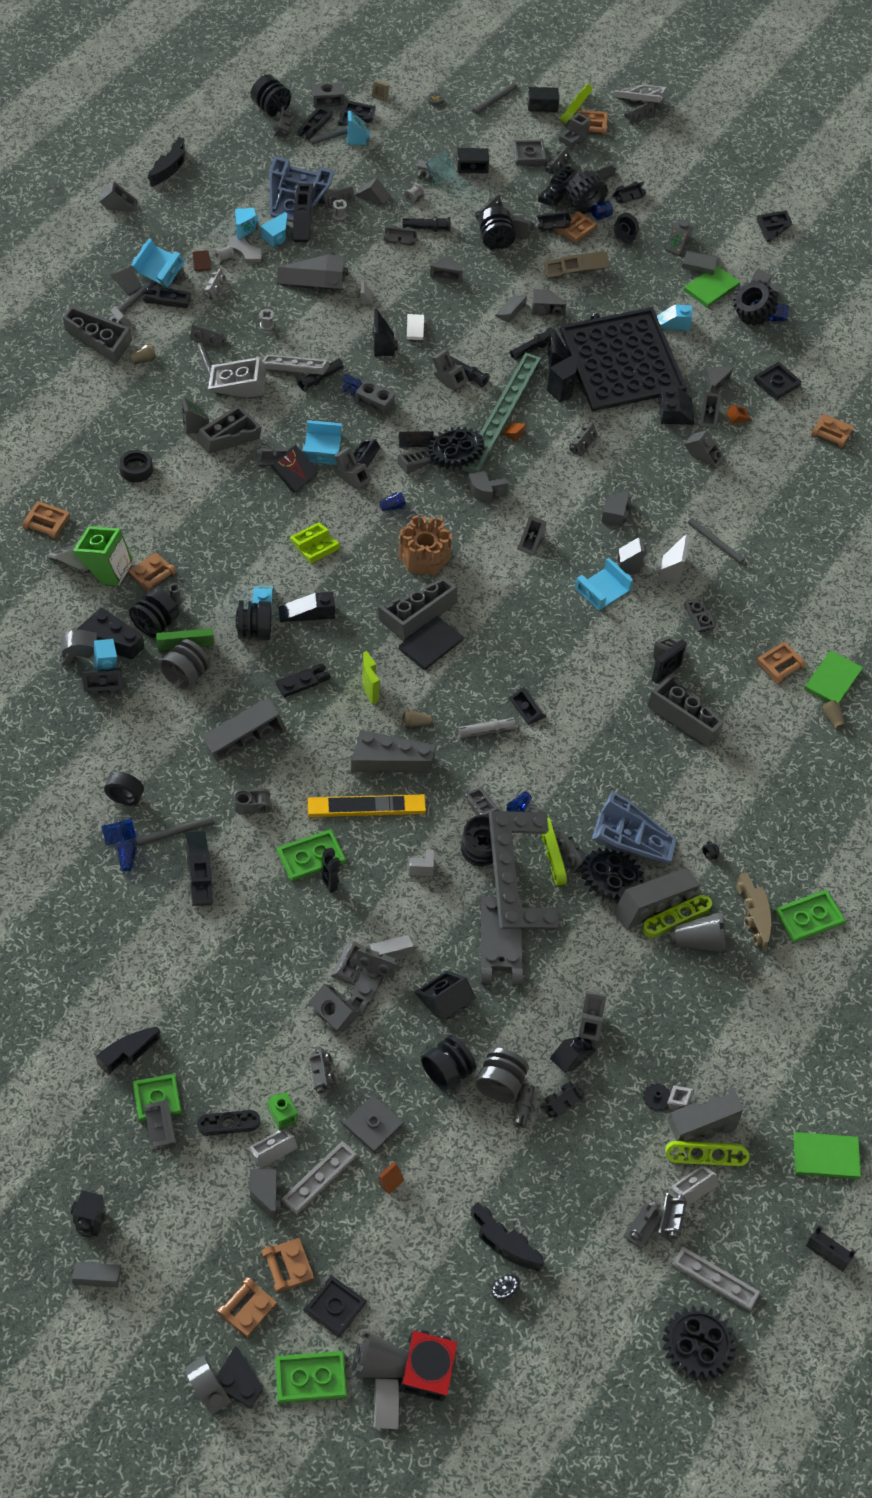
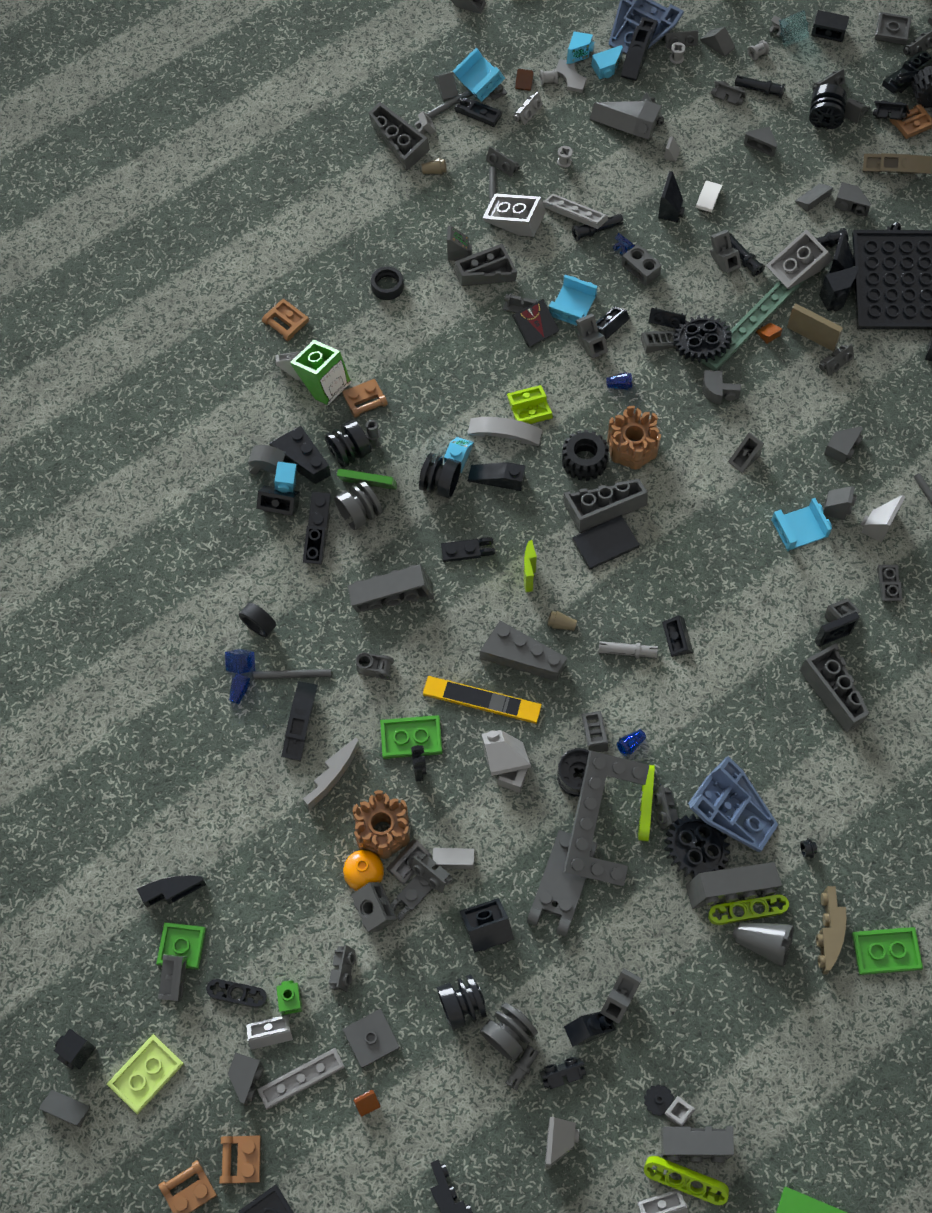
camera: 25 degrees right, 10 degrees up
(150, 695) = (317, 528): none -> black slope
(165, 1220) = (145, 1074): none -> yellowish green tile
(248, 902) = (336, 767): none -> light grey slope
(299, 566) = (505, 428): none -> light grey slope
(308, 979) = (362, 868): none -> light orange cylinder
(309, 922) = (381, 810): none -> medium nougat piece
(384, 582) = (585, 467): none -> black tyre
(405, 843) = (504, 752): none -> light grey slope
(521, 361) = (799, 260): none -> light grey slope
(554, 415) = (814, 327): none -> dark tan tile
(581, 1152) = (559, 1140): none -> light grey slope

